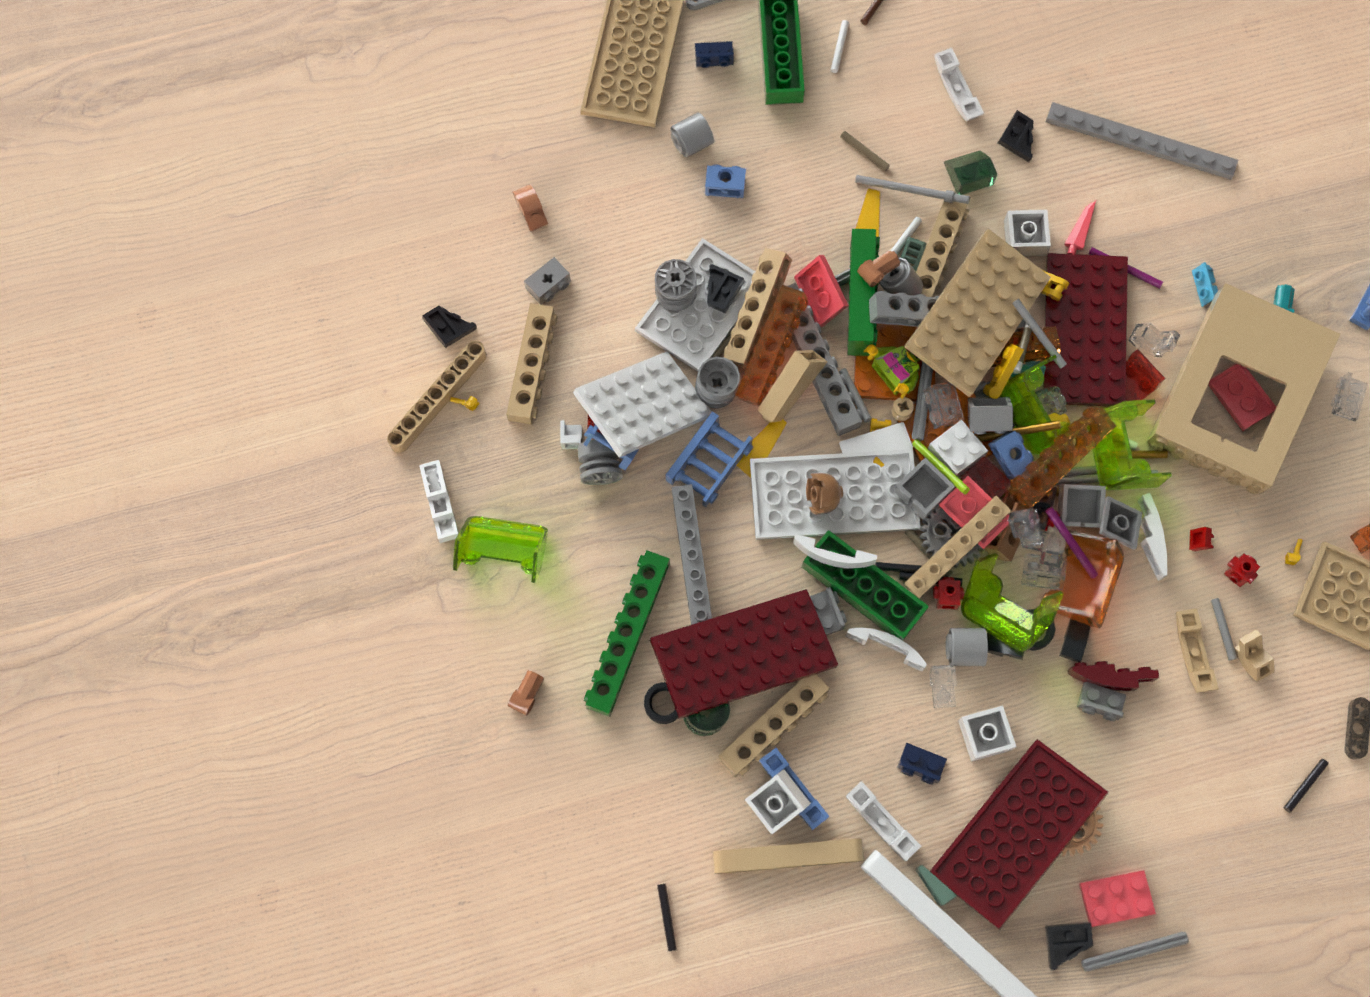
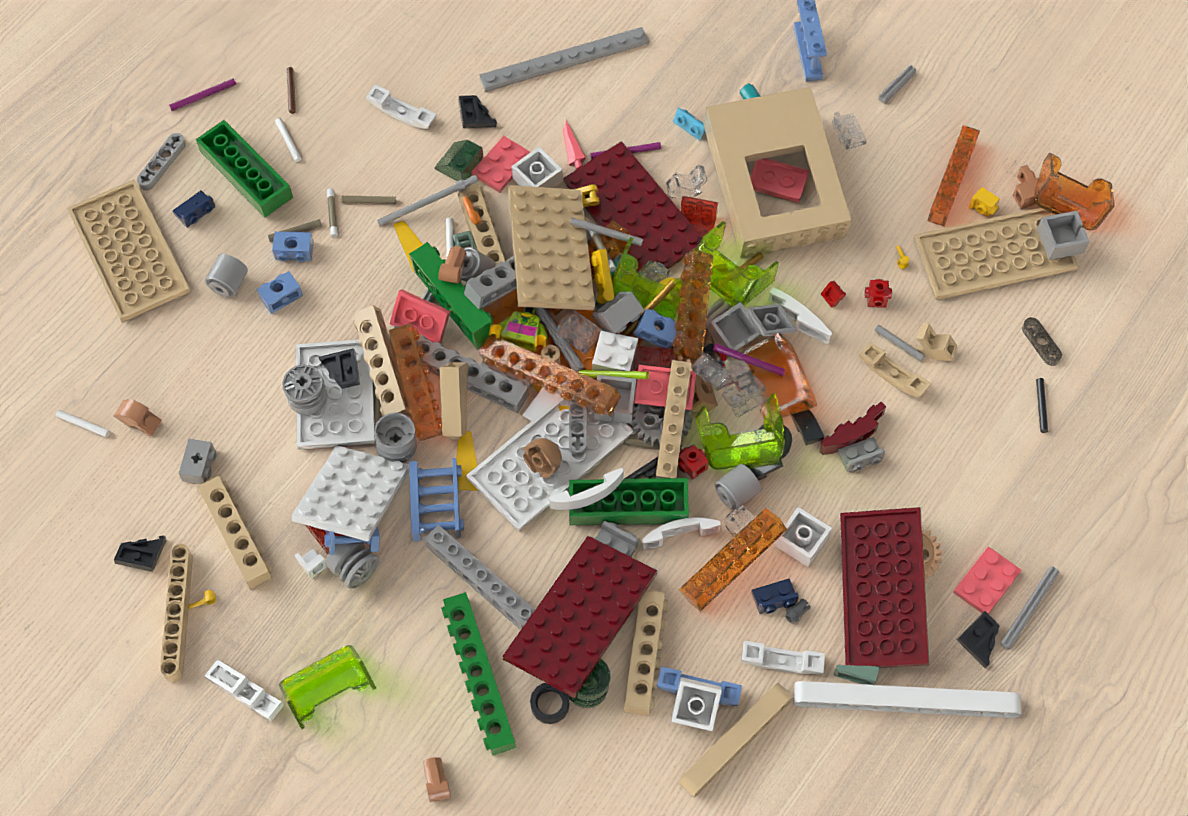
camera: 40 degrees left, 10 degrees down
(486, 181) = (82, 423): none -> white bar
(764, 138) = (301, 241): none -> medium blue brick
(781, 134) = (301, 228): none -> dark tan bar
(824, 141) = (332, 213): none -> dark tan bar
(882, 483) = (577, 420): none -> light grey beam
(909, 706) = (733, 559): none -> clear orange brick
(915, 484) = (496, 347): none -> clear orange brick
(930, 791) = (797, 611): none -> dark grey pin
(939, 231) = (473, 215): none -> orange piece
(998, 198) = (496, 167): none -> coral plate

